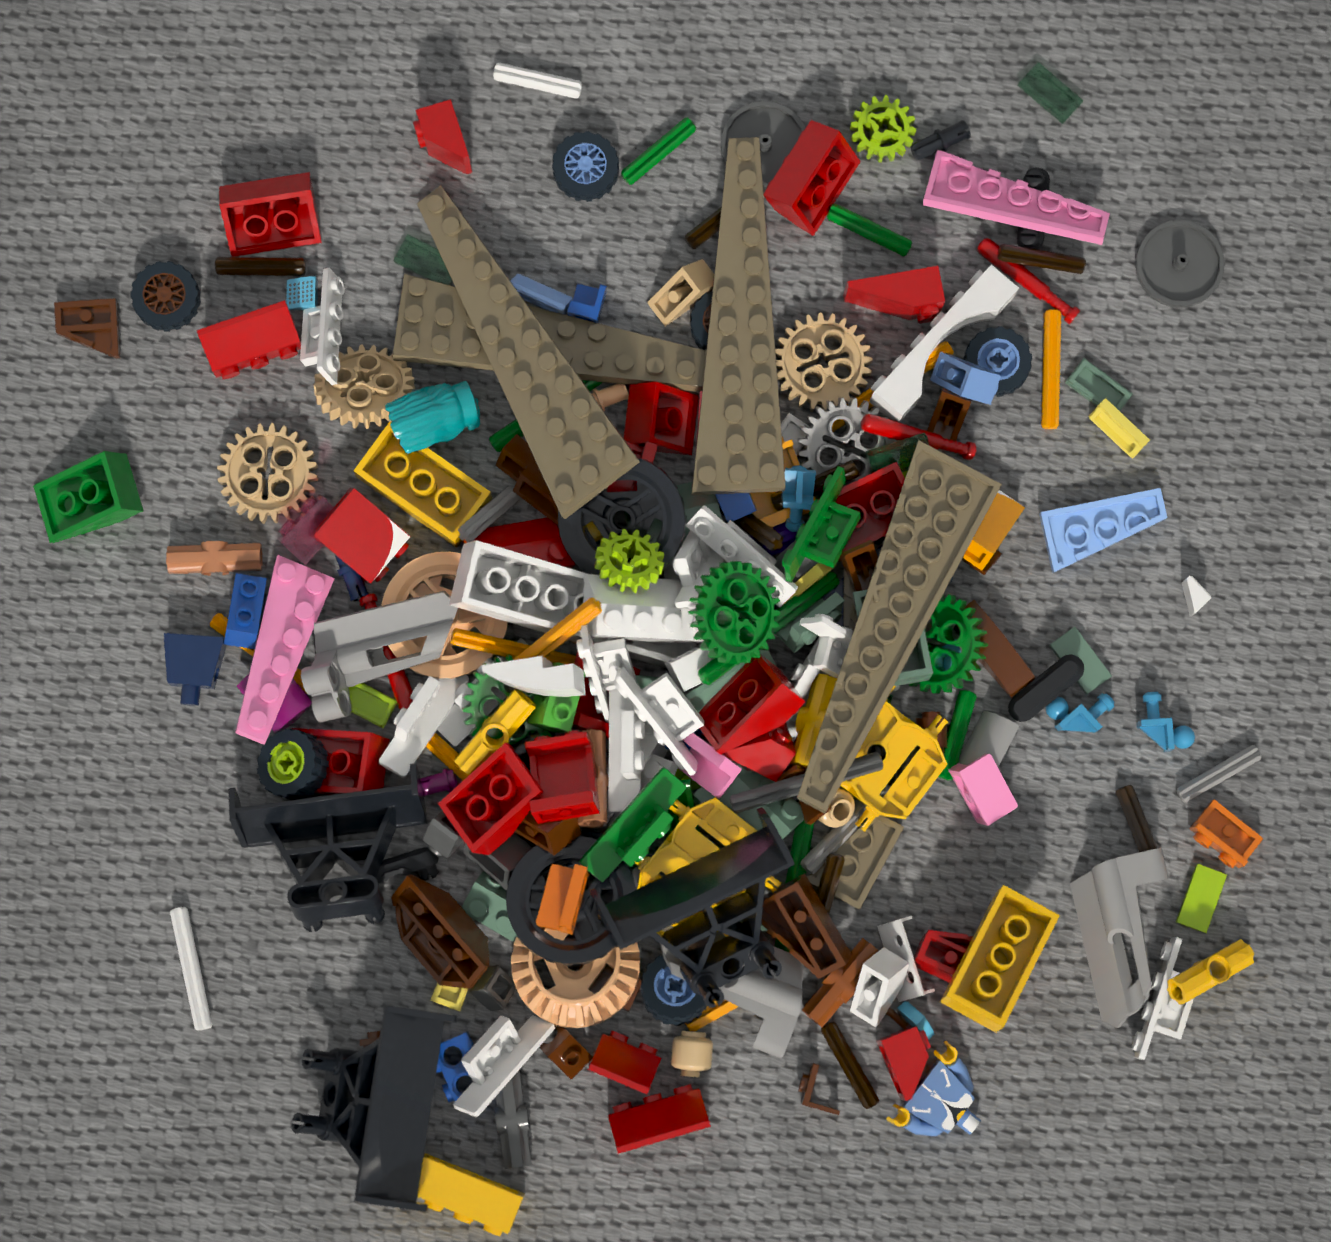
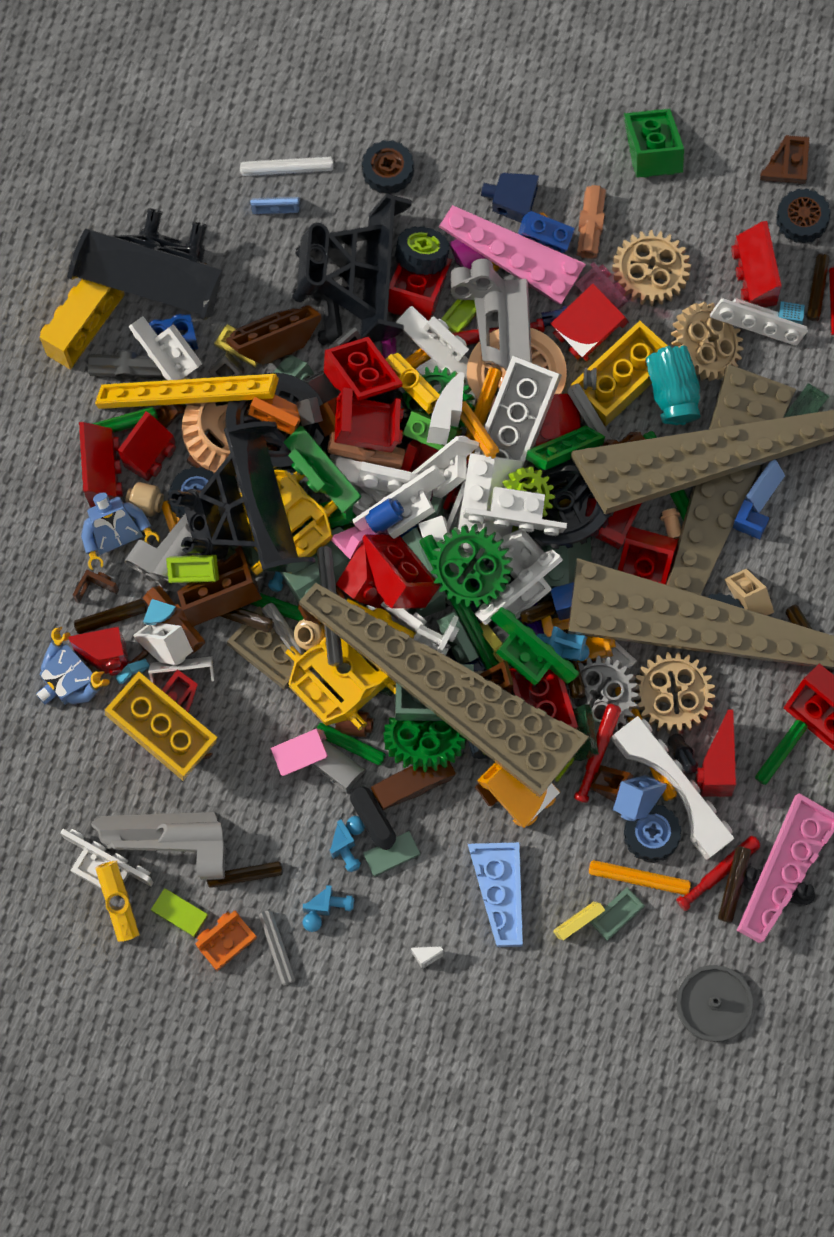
camera: 110 degrees right, 10 degrees down
(174, 833) = (388, 167): none -> black wheel
(248, 972) = (275, 205): none -> light blue slope
(448, 516) = (589, 378): none -> dark grey bush
(548, 1024) = (187, 391): none -> yellow tile
(549, 530) = (561, 448): none -> green plate
(559, 855) = (309, 411): none -> dark grey tile
(592, 1105) = (126, 421): none -> green axle
(657, 566) = (516, 509): none -> white bracket
(683, 733) = (385, 515): none -> blue brick
(738, 1085) = (113, 525): none -> medium blue torso
(790, 951) = (192, 568): none -> lime tile
(844, 999) = (158, 612): none -> medium azure tile
(899, 338) = (683, 753): none -> black axle

